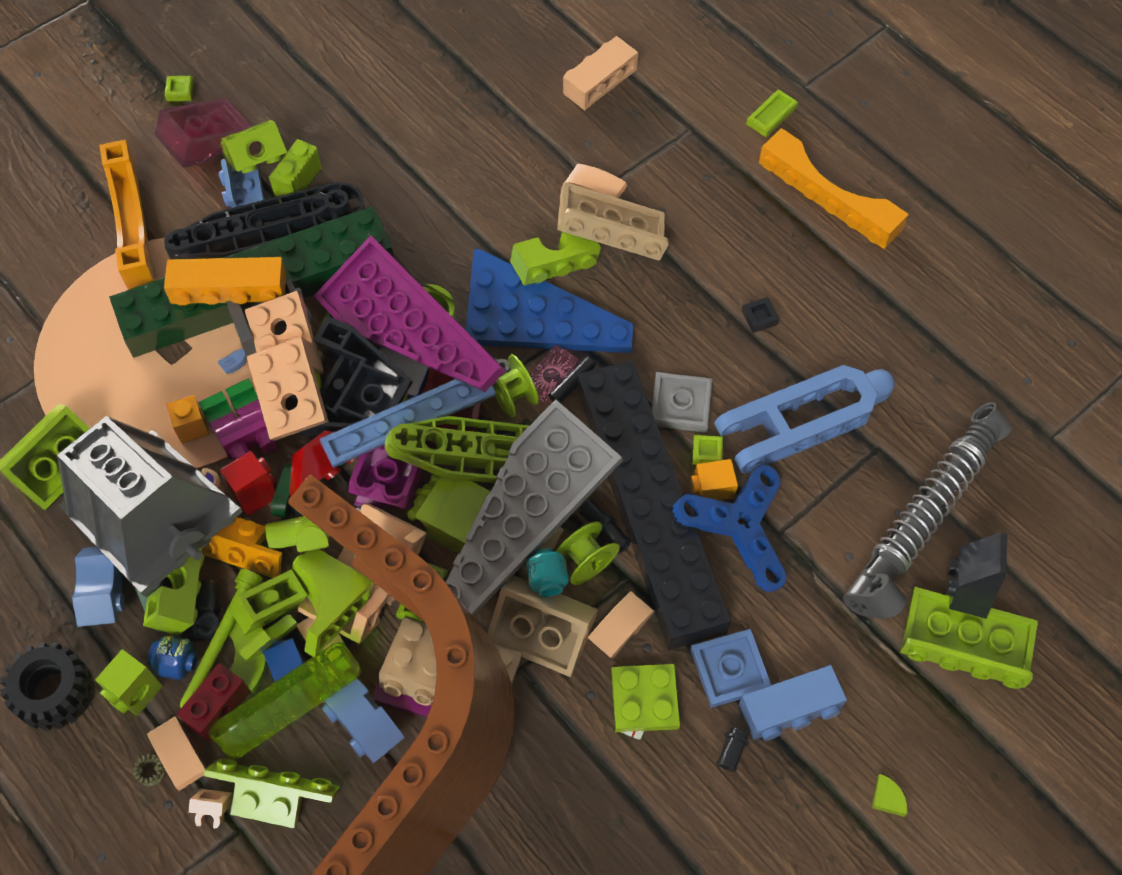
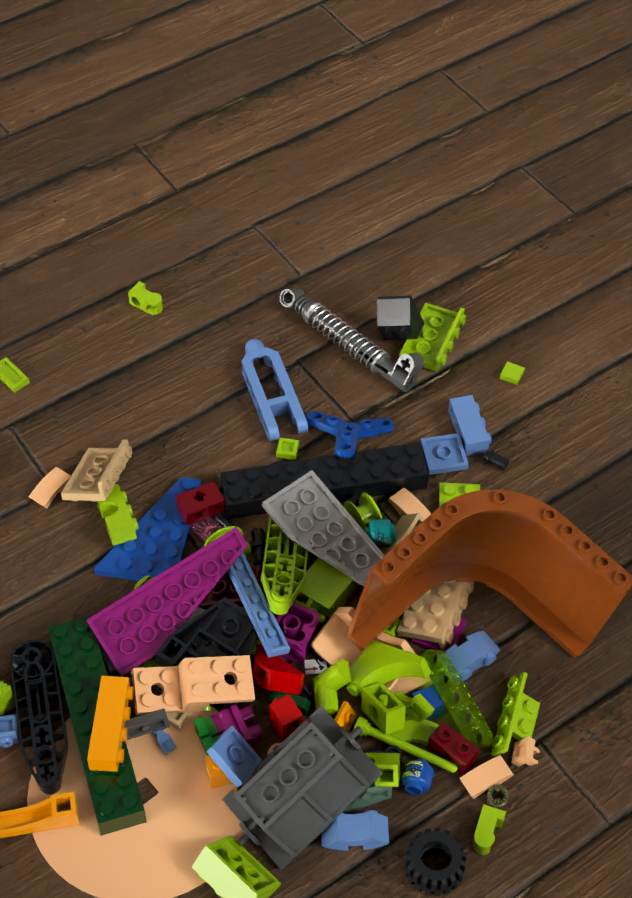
camera: 85 degrees left, 10 degrees down
(88, 751) = (484, 834): none -> lime leg
(128, 684) = (439, 799): lime brick -> none
(184, 422) = (234, 756): none -> medium blue plate
(579, 343) = (200, 503): none -> dark red brick
(682, 401) = (247, 454): light grey tile -> none
(715, 480) = (314, 443): light orange brick -> none
(760, 315) = (187, 404): black plate -> none
(873, 218) = (60, 368): light orange arch -> none
(889, 797) = (525, 391): lime tile -> none
(924, 773) = (512, 373): none -> lime tile
(936, 243) = (145, 300): none -> lime leg

